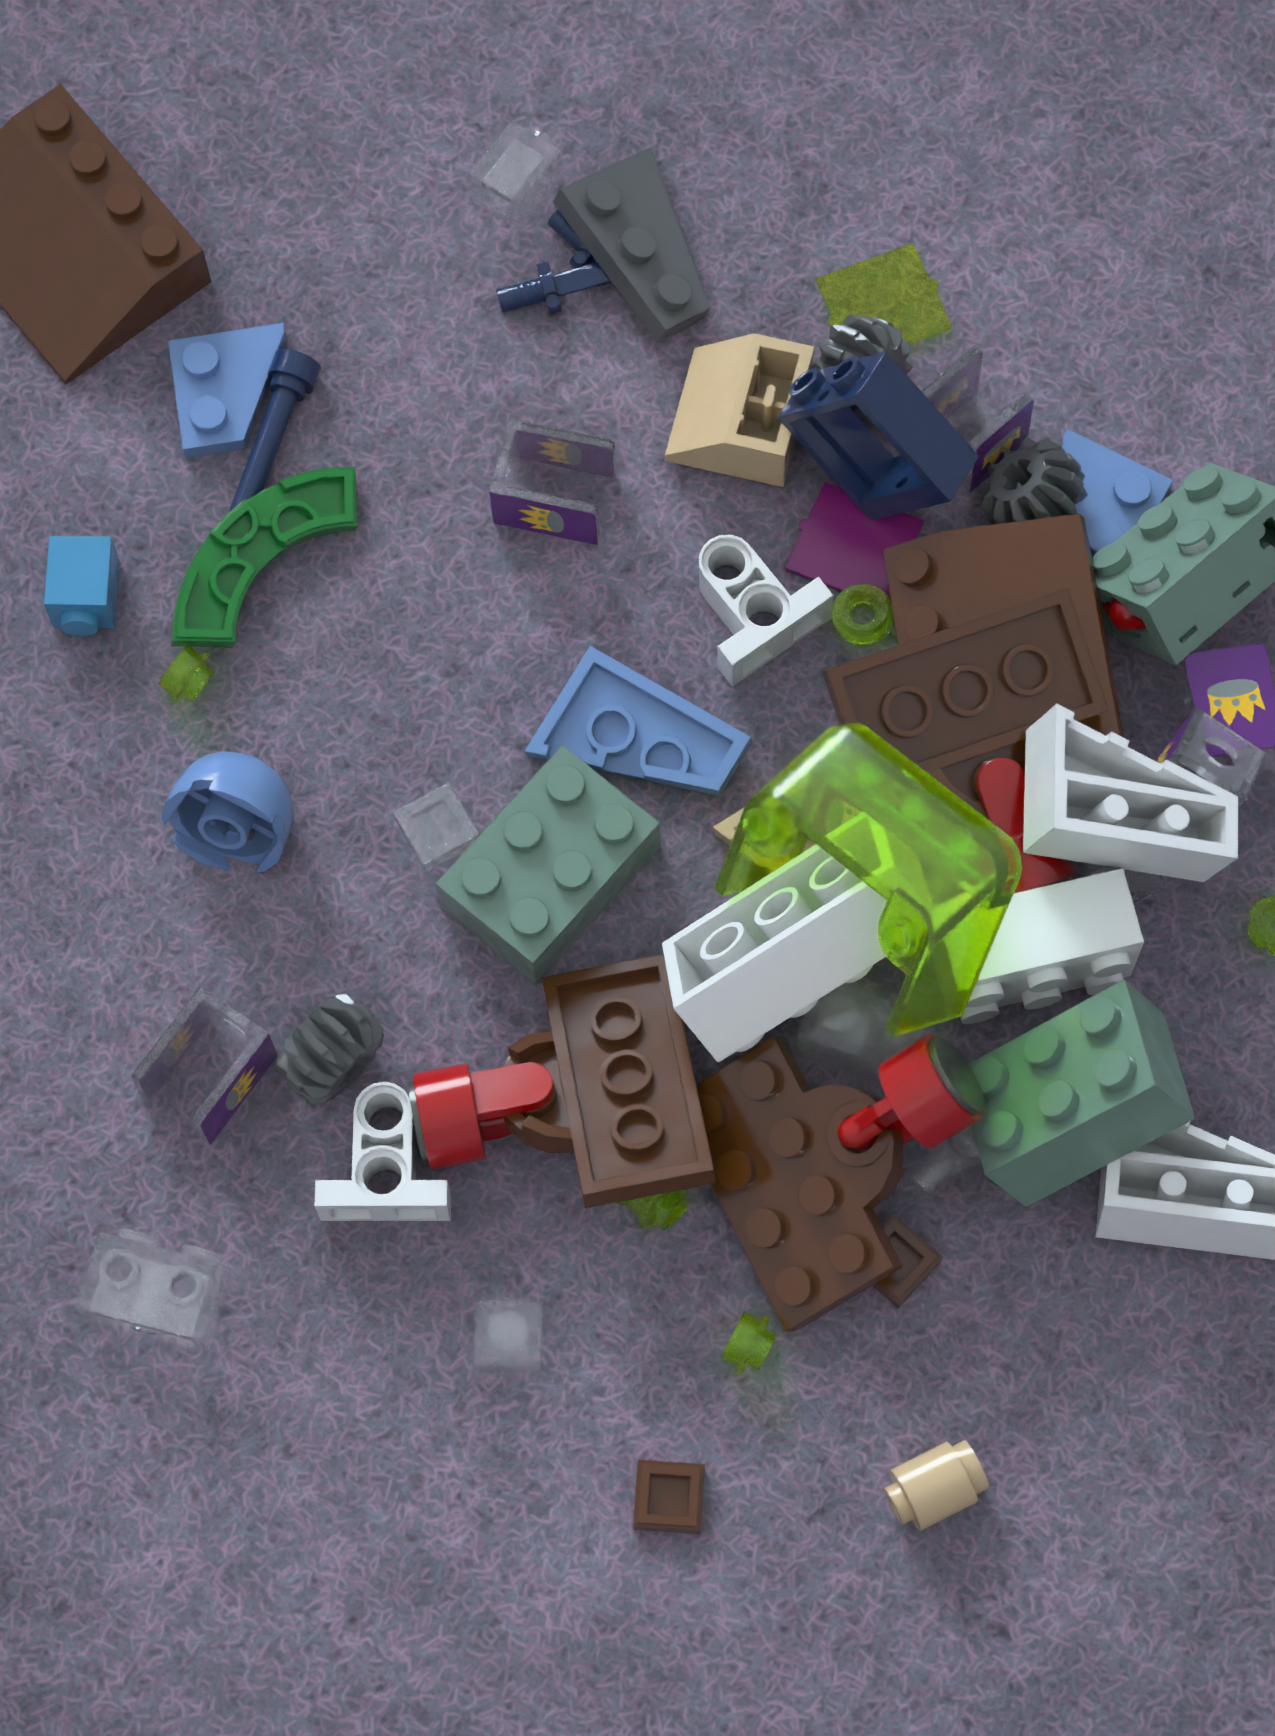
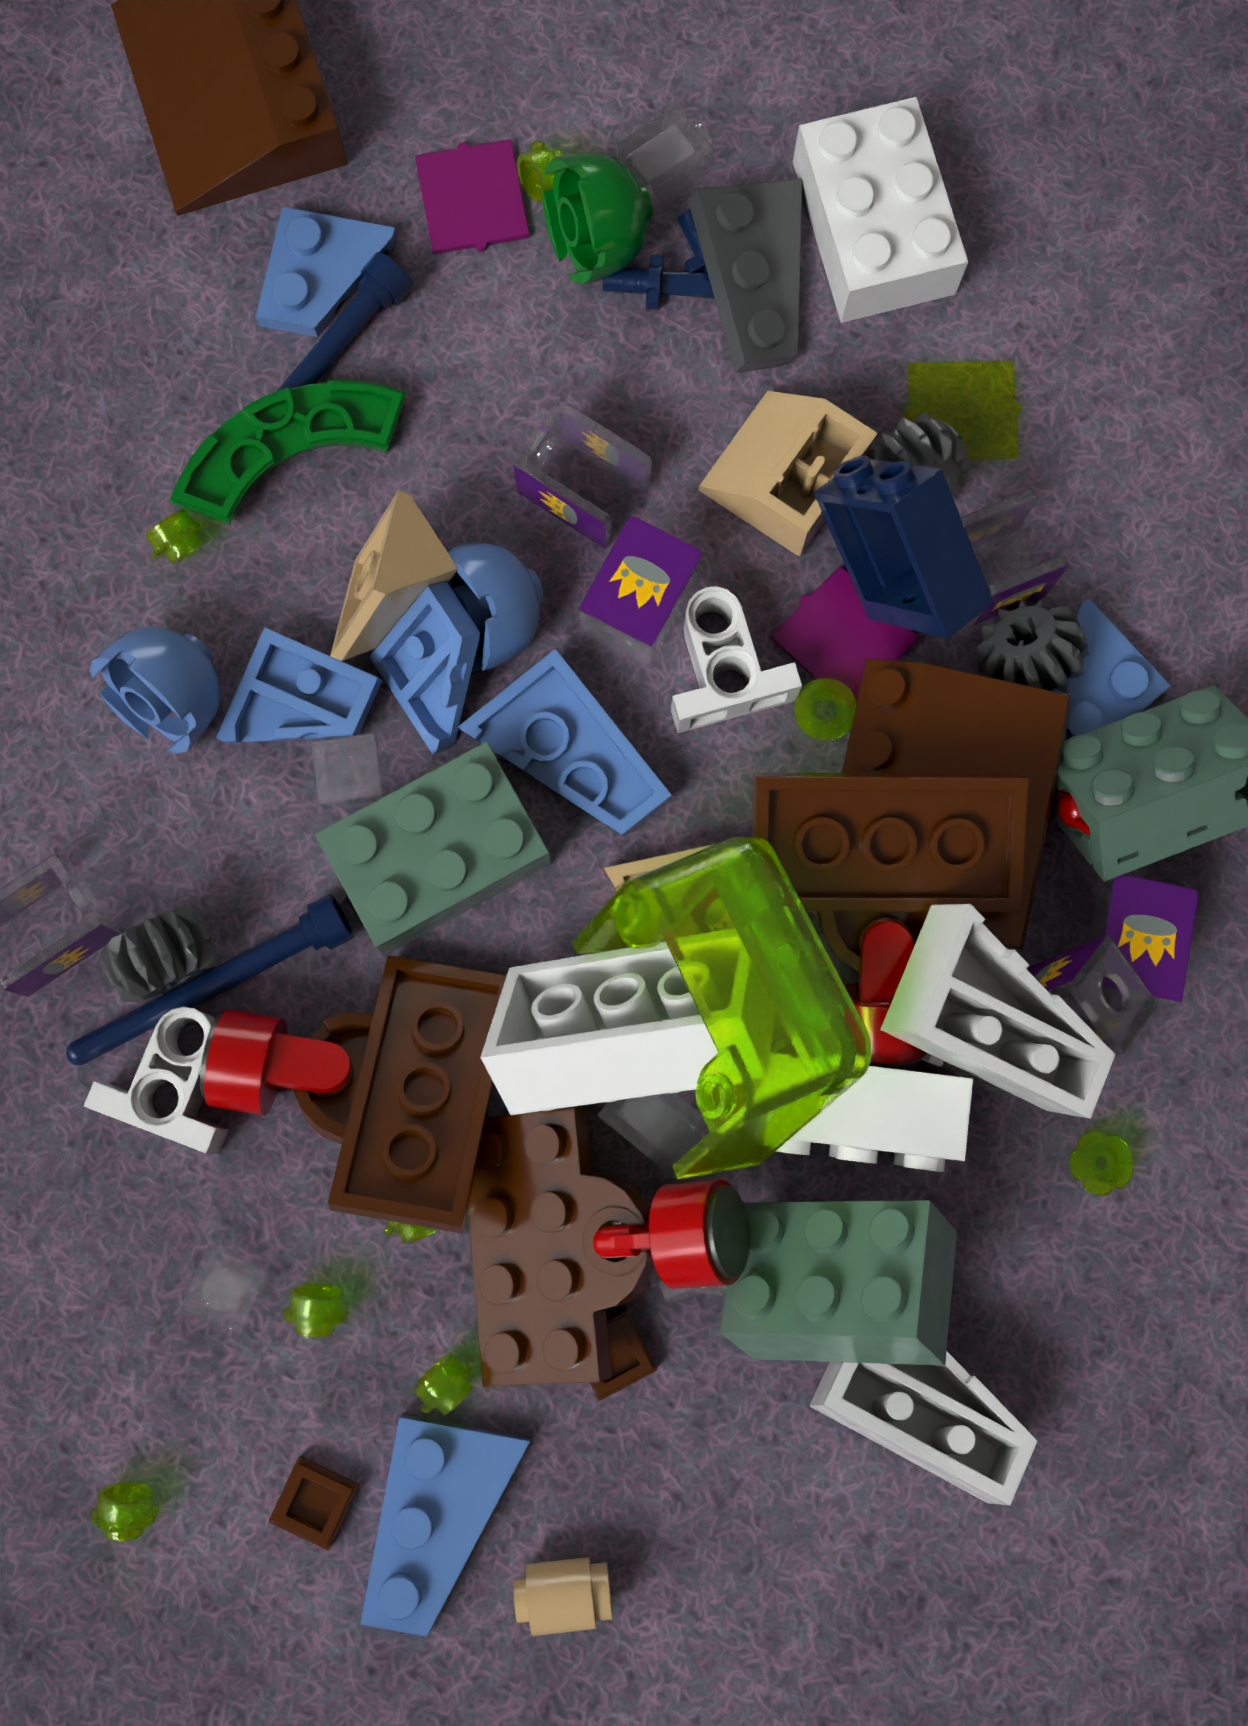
camera: 15 degrees right, 10 degrees up
(81, 583) = (110, 413): dark azure brick -> none
(343, 270) = (472, 197): none -> magenta piece
(361, 776) = (297, 695): none -> medium blue wing
(404, 224) = (532, 167): none -> clear neon green plate
(414, 634) = (389, 576): none -> tan slope
(466, 977) = (319, 927): none -> dark blue piece
(471, 246) = (595, 214): none -> green cylinder
(479, 699) = (430, 663): none -> medium blue wing
(494, 1567) = (124, 1510): none -> clear neon green plate
(507, 620) = (499, 598): none -> medium blue cylinder
(601, 1320) = (316, 1309): none -> clear neon green plate
(648, 567) = (639, 591): none -> dark purple piece
(734, 151) = (879, 209): none -> white brick
(784, 1466) = (432, 1514): none -> medium blue wing

